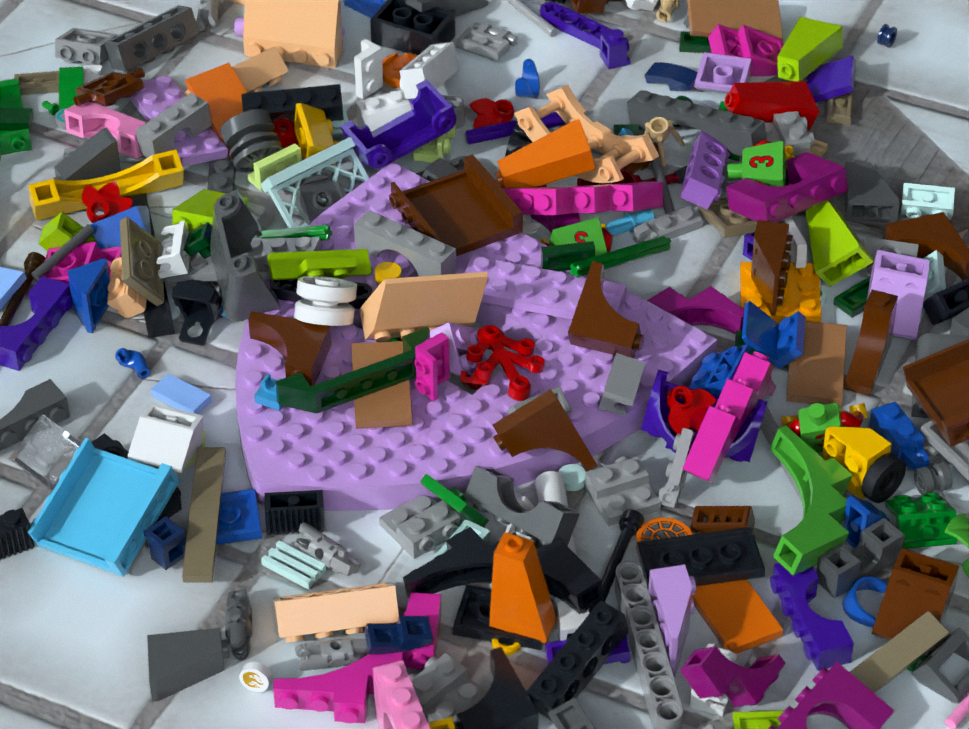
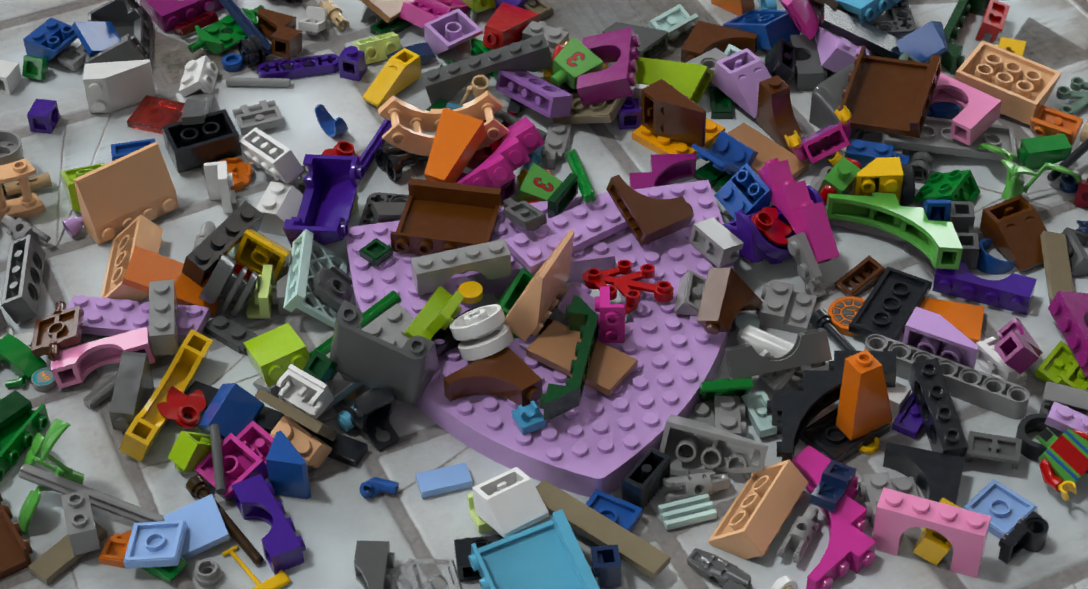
camera: 50 degrees left, 0 degrees up
(366, 524) = (704, 448): none -> light grey wedge
(376, 193) = (376, 252): none -> dark green tile
(509, 245) = (524, 214): none -> dark grey hinge
(624, 80) = (395, 76): none -> yellow slope
(653, 49) = (378, 47): none -> yellowish green bracket
(864, 386) = (824, 141): none -> dark pink torso

